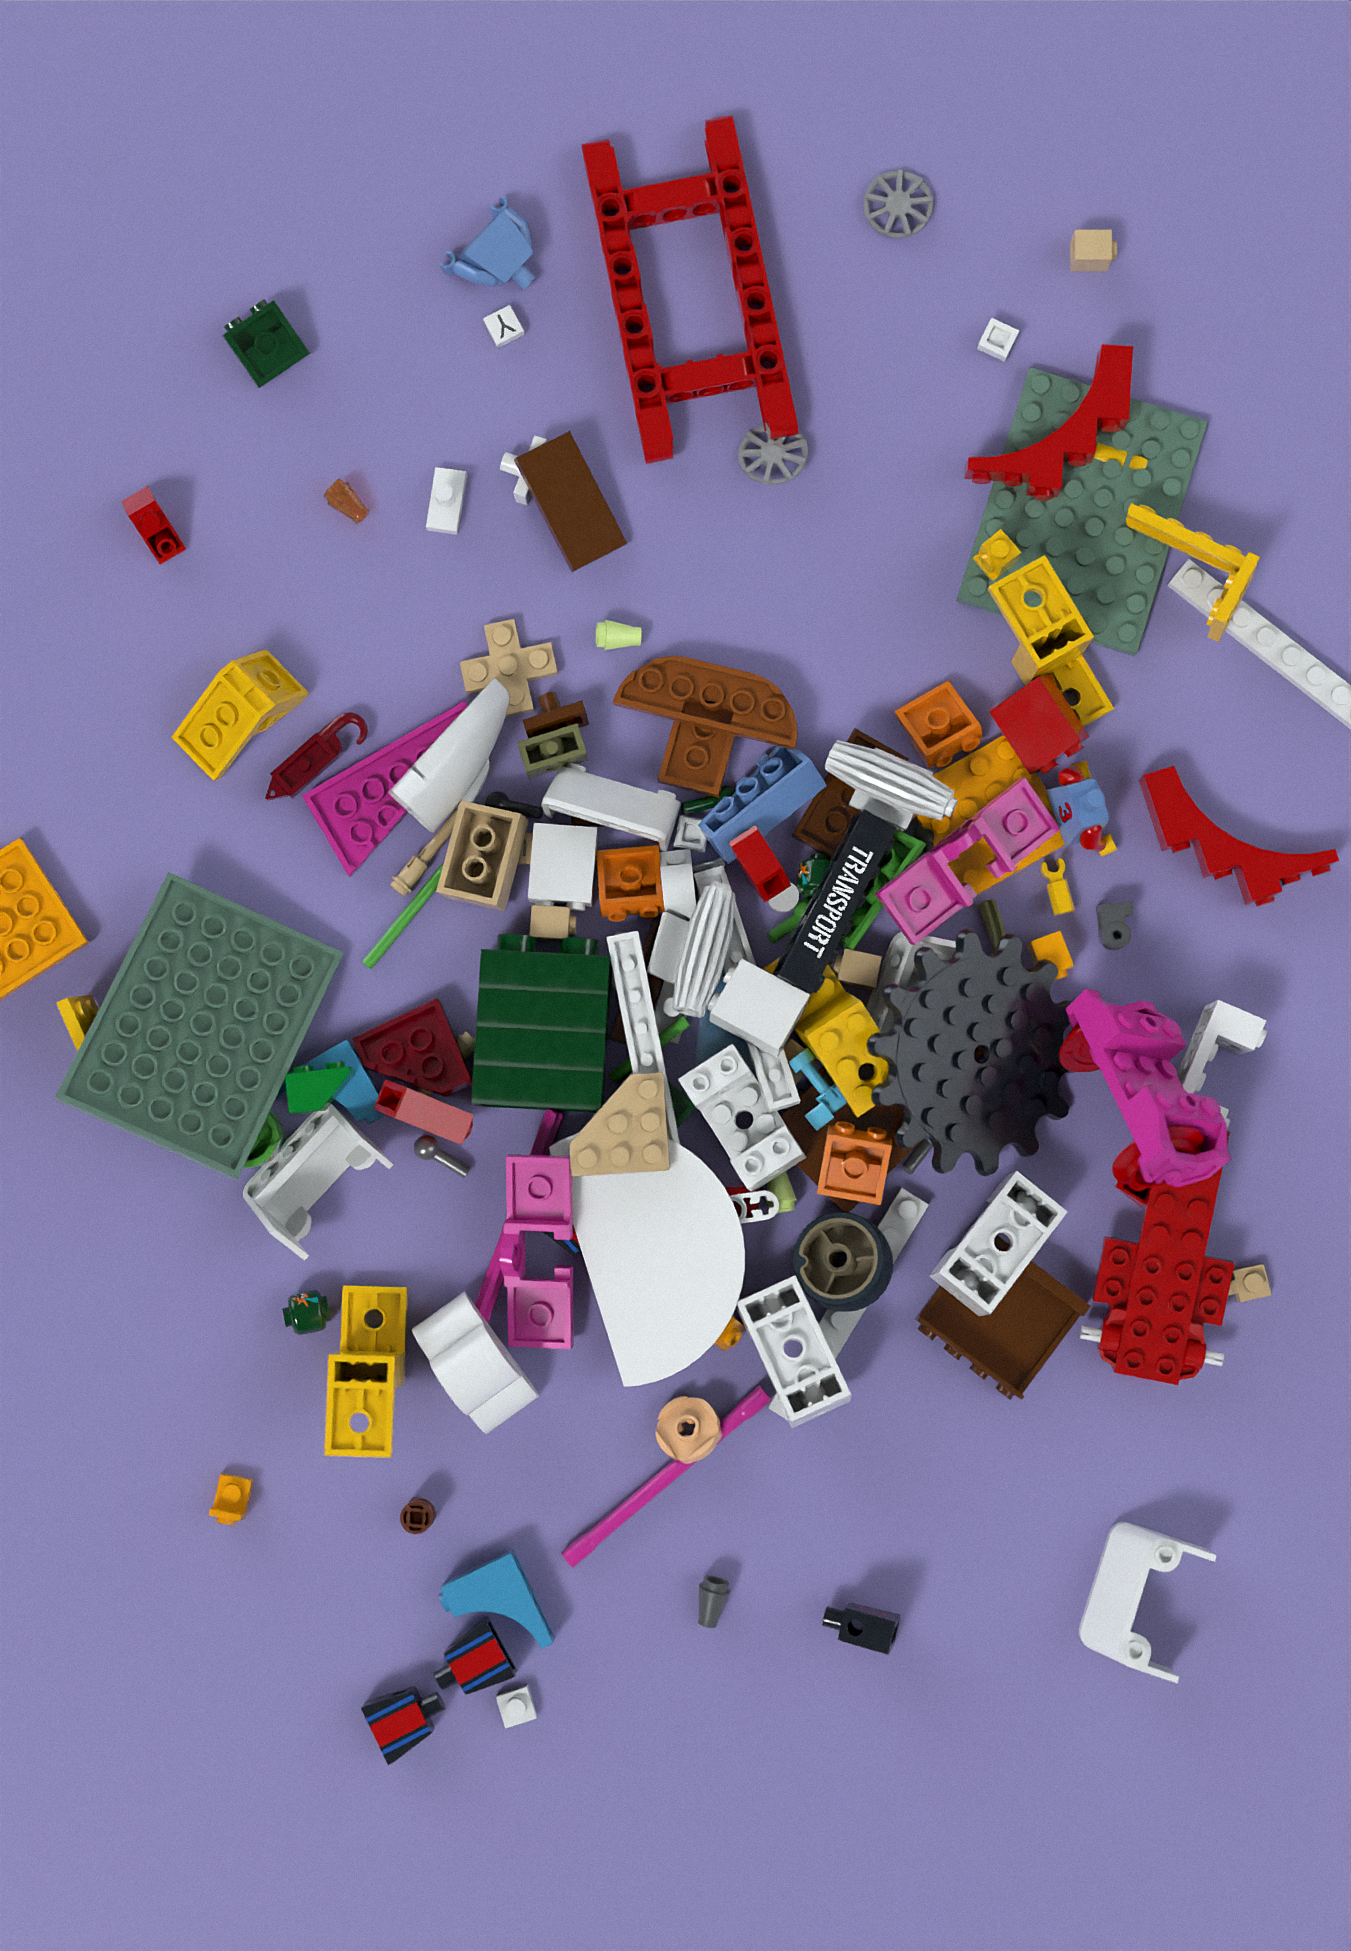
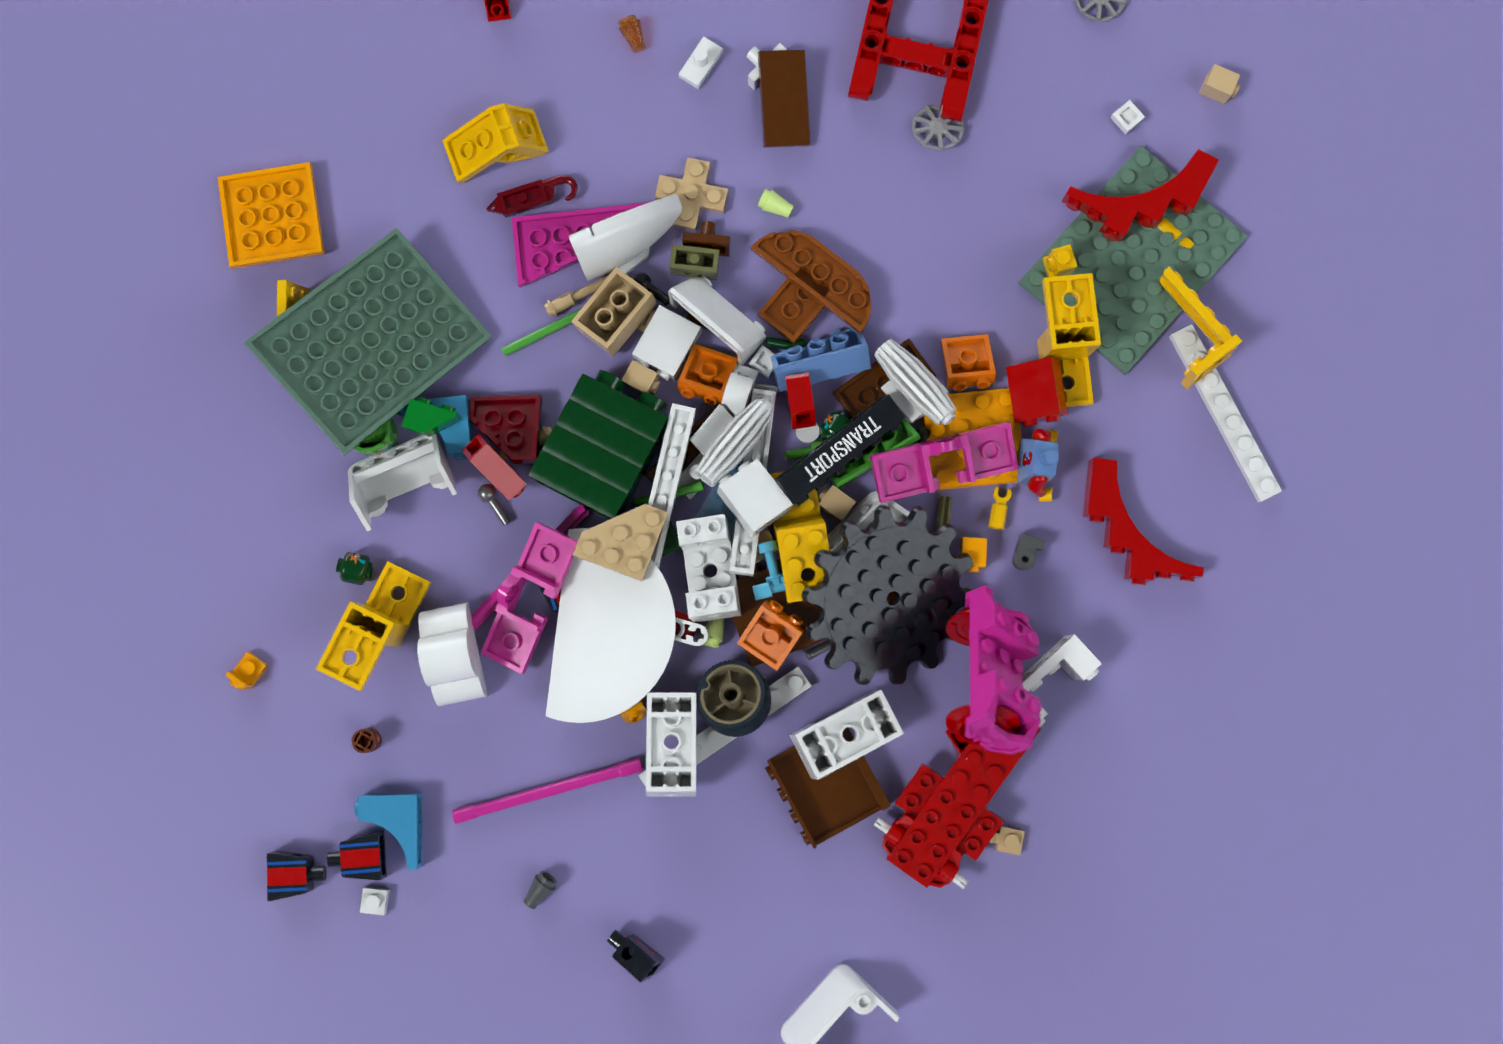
camera: 20 degrees right, 0 degrees up
(705, 1435) = (586, 774): light nougat plate -> none

